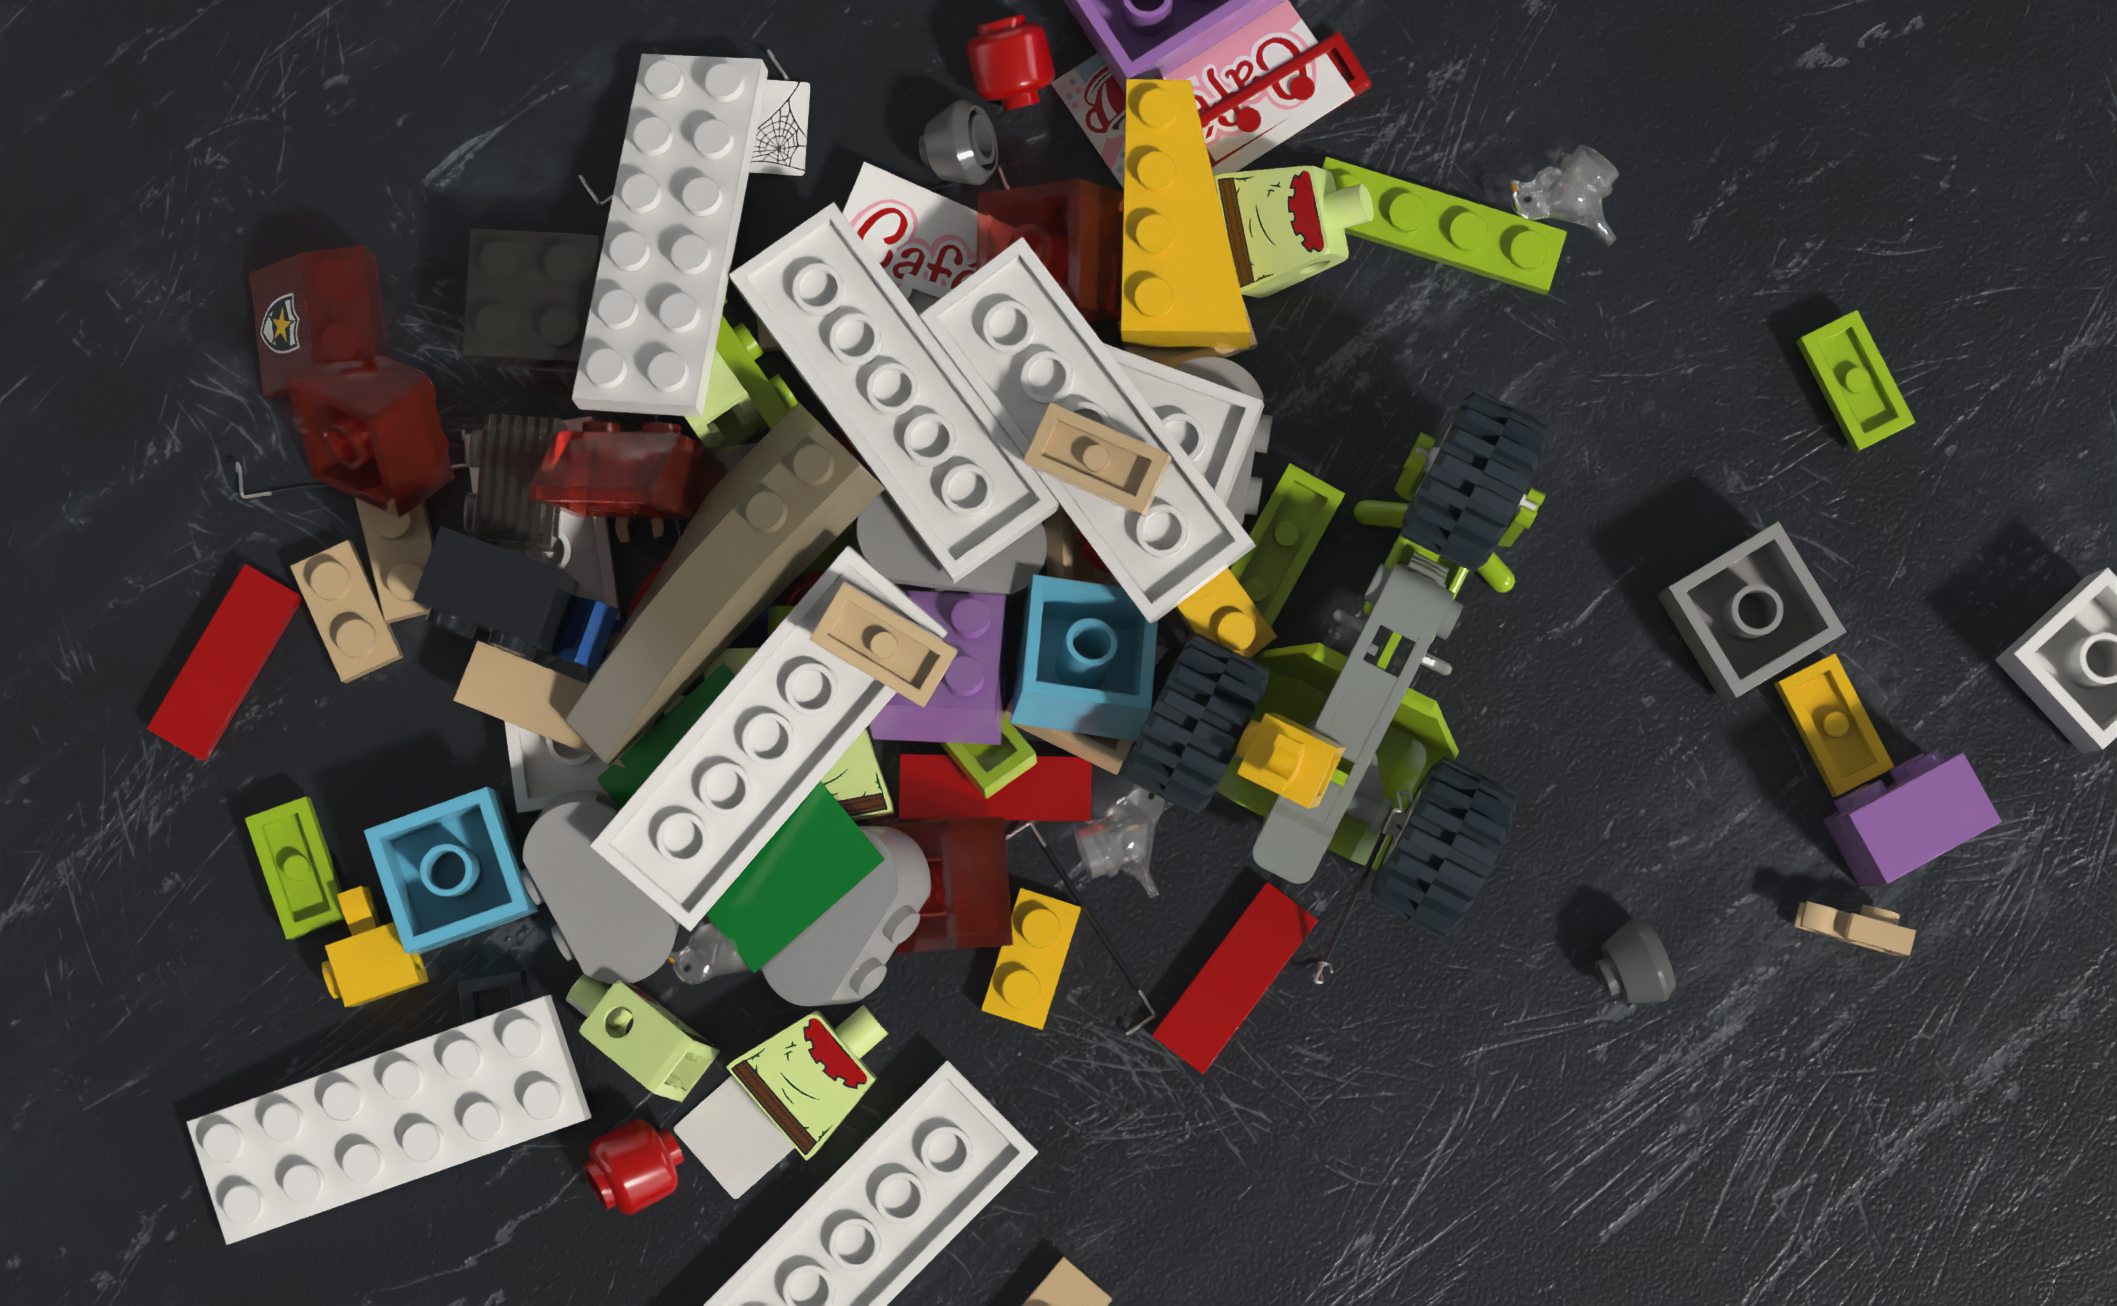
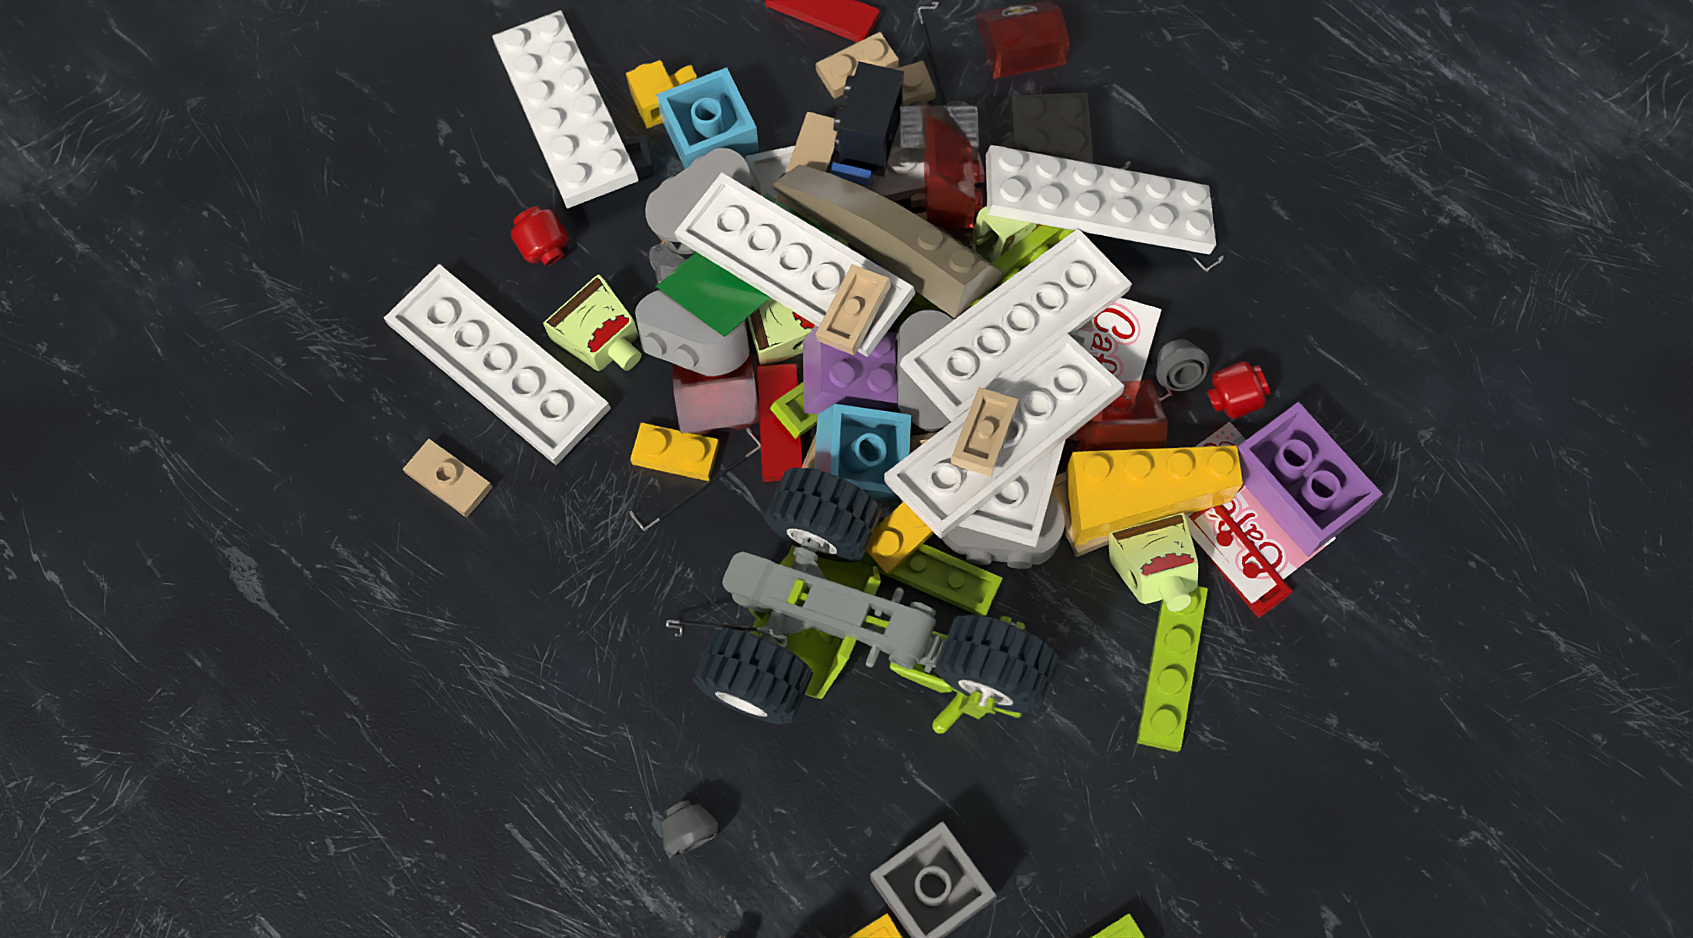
camera: 90 degrees right, 15 degrees down
(297, 867) = (708, 49): lime plate -> none
(372, 430) = (962, 58): clear red slope -> none
(659, 1047) = (613, 233): yellowish green torso -> none
(733, 1137) = (555, 291): white sticker -> none
(782, 129) = (1174, 266): white sticker -> none
(1123, 838) = (748, 493): clear animal -> none
(1234, 977) = (668, 574): red tile -> none
(1288, 759) = (798, 559): yellow brick -> none
(1570, 192) = (1207, 747): clear animal -> none

